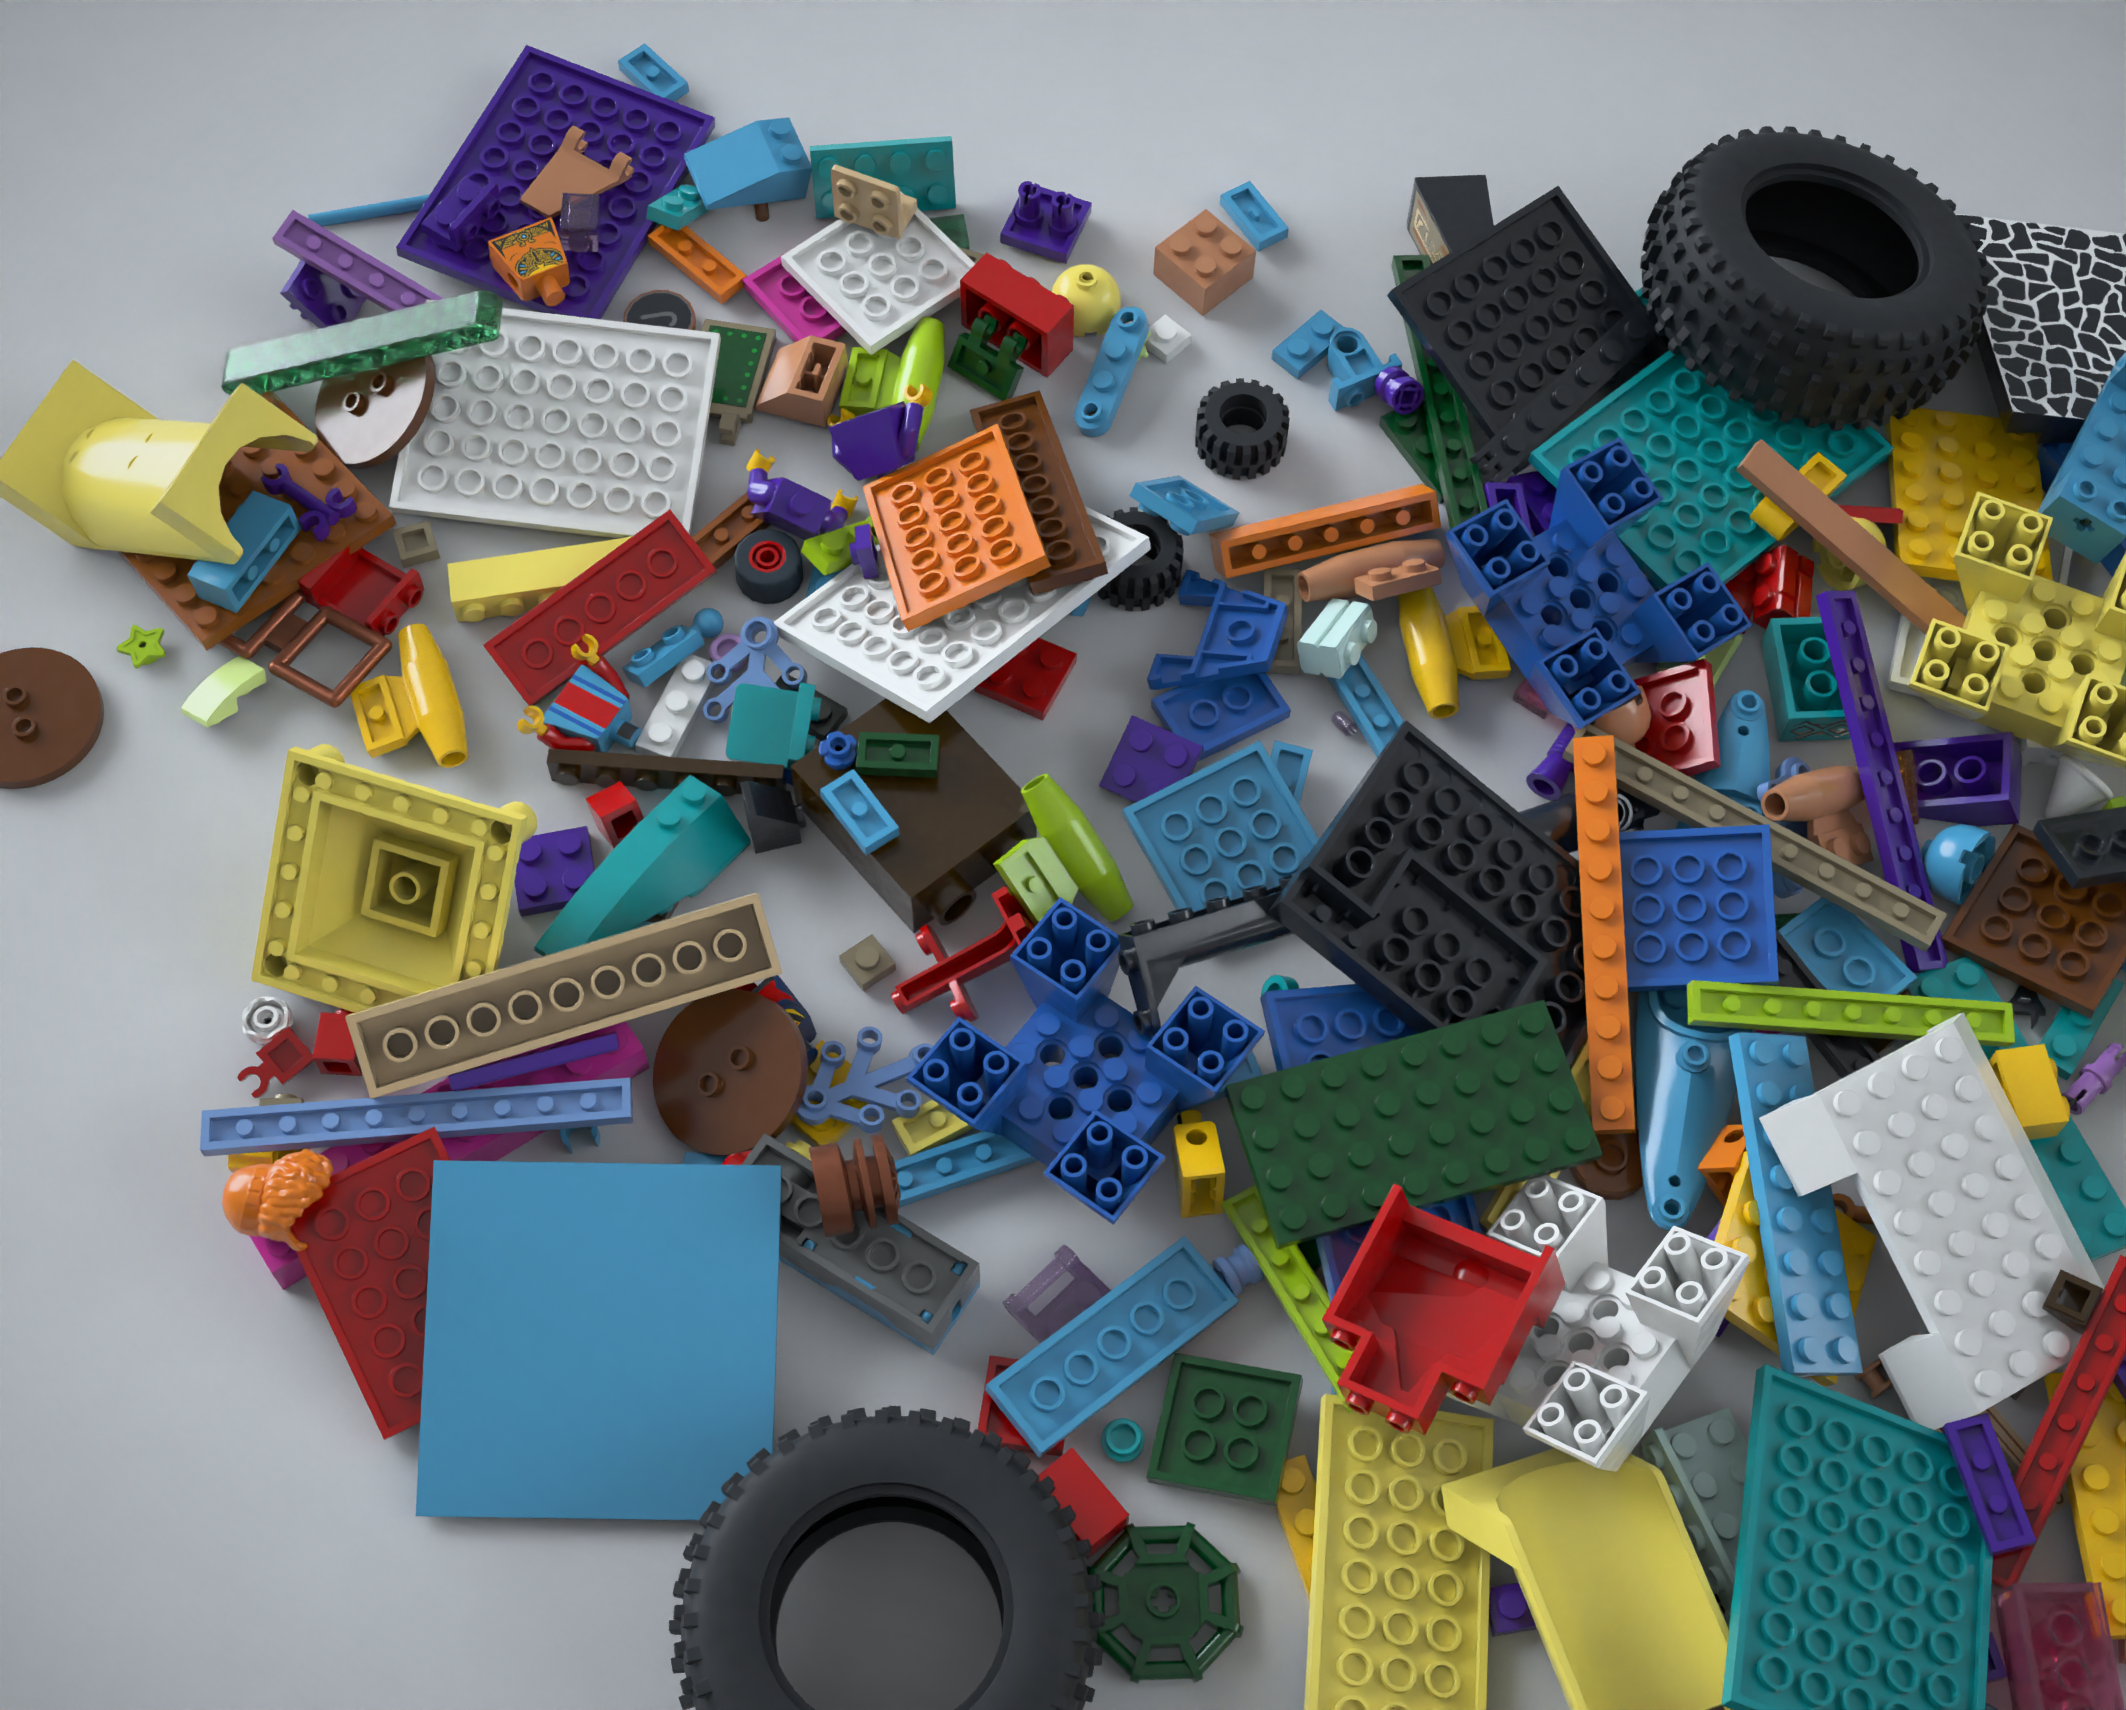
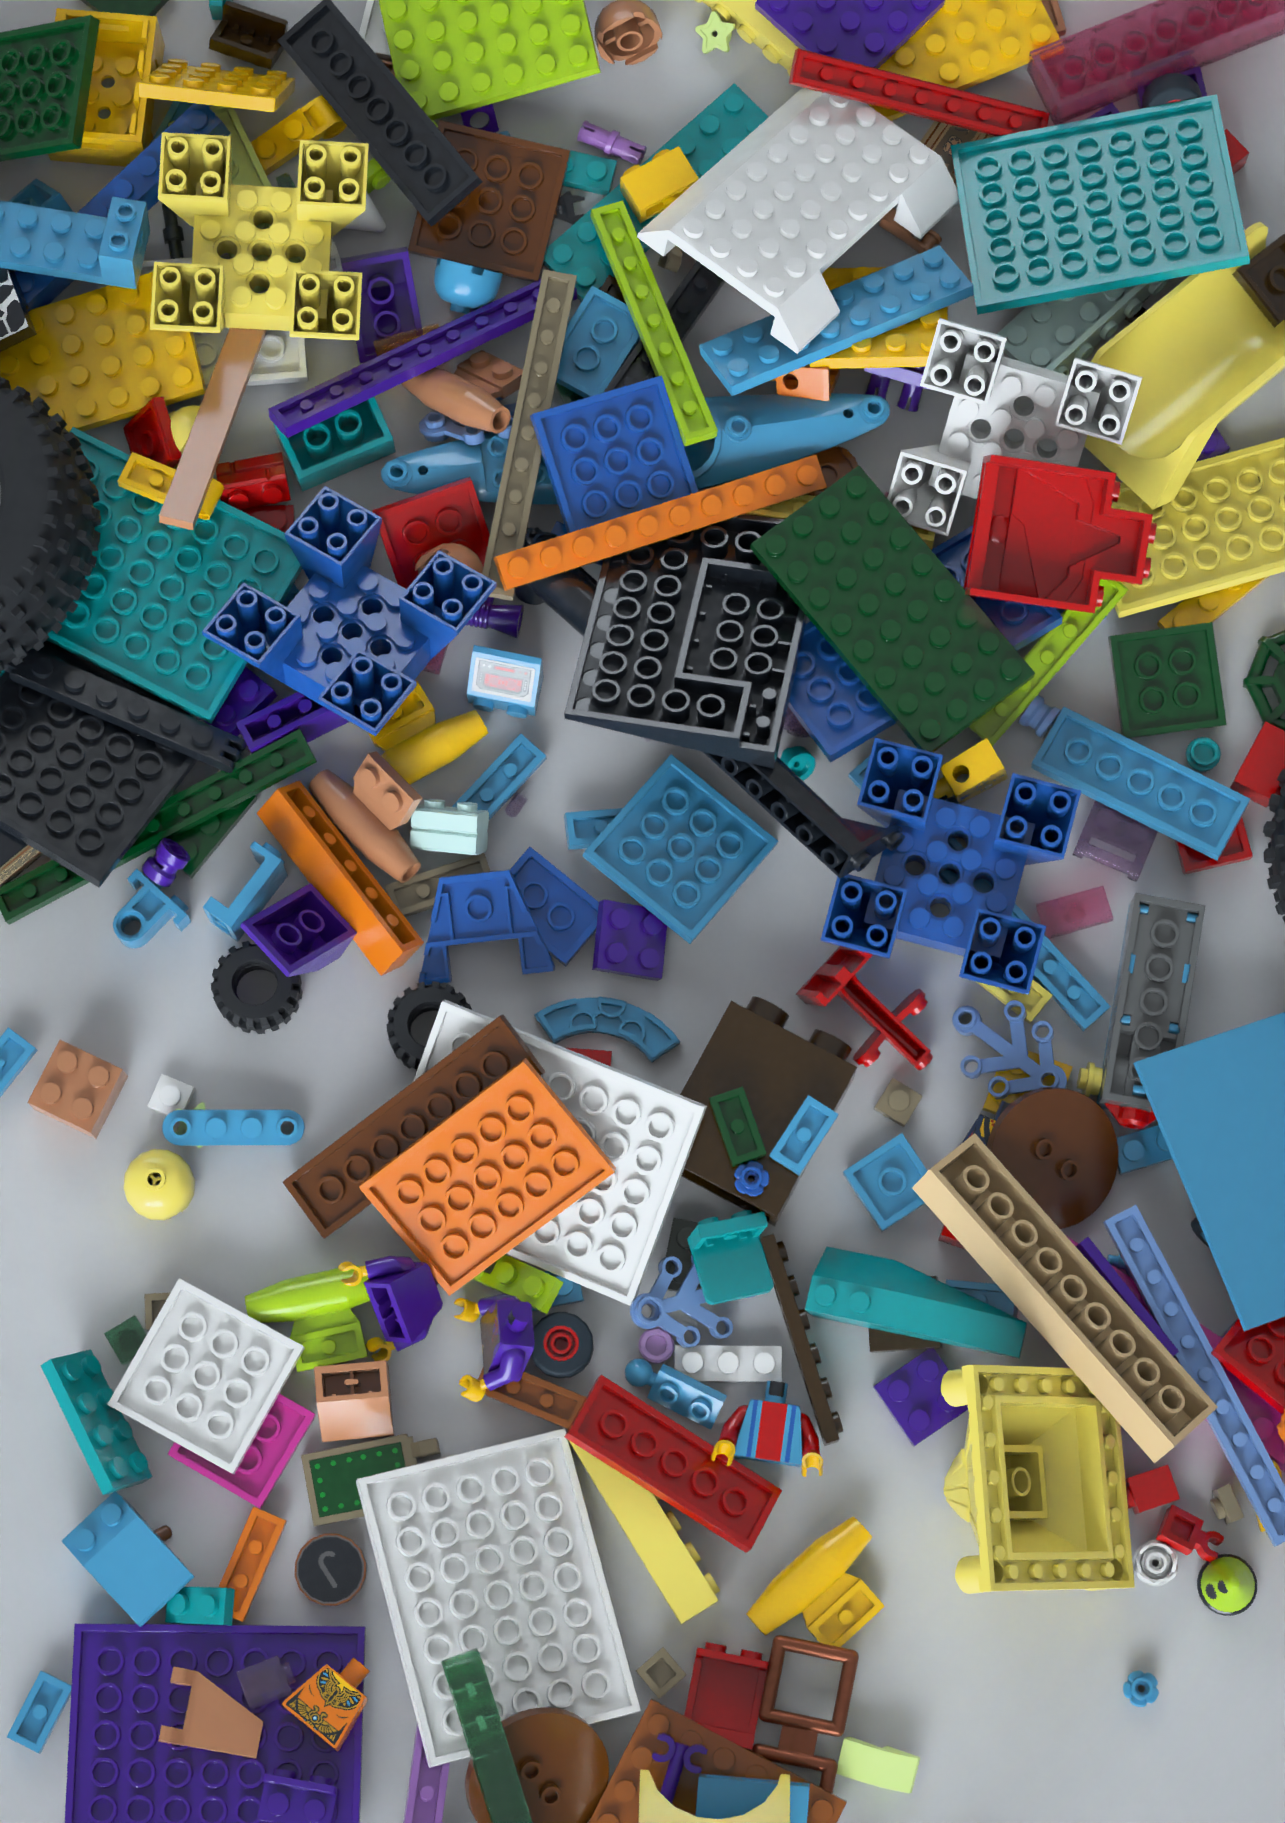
camera: 110 degrees left, 15 degrees up
(155, 968) = (1131, 1691): none -> dark azure plate
(207, 1085) = (1227, 1585): none -> lime hat
(615, 812) = (859, 1360): red brick -> none
(771, 816) = (808, 1228): black slope -> none
(794, 917) = (886, 1181): none -> dark azure plate
(854, 1185) = (1130, 997): copper wheel -> none
(864, 552) = (534, 1251): dark purple plate -> none
(871, 202) = (147, 1405): tan bracket -> none
(985, 366) = (271, 1242): dark green plate -> none
(995, 1219) = (1074, 912): none -> clear pink plate
(1020, 307) = (211, 1229): red brick -> none
(1045, 222) = (81, 1255): dark purple plate -> none
(1063, 859) = (757, 962): lime plate -> none
(1080, 729) = (611, 1018): none -> dark azure tile
(1183, 505) = (368, 1000): dark azure plate -> none
(1276, 459) = (300, 932): none -> dark purple slope
(1306, 345) = (128, 967): dark azure plate -> none
(1335, 451) = (254, 894): none -> dark azure panel
(1484, 735) = (504, 681): none -> slope
(1989, 1484) = (988, 140): dark purple plate -> none
(2072, 1300) = (834, 109): dark brown slope -> none

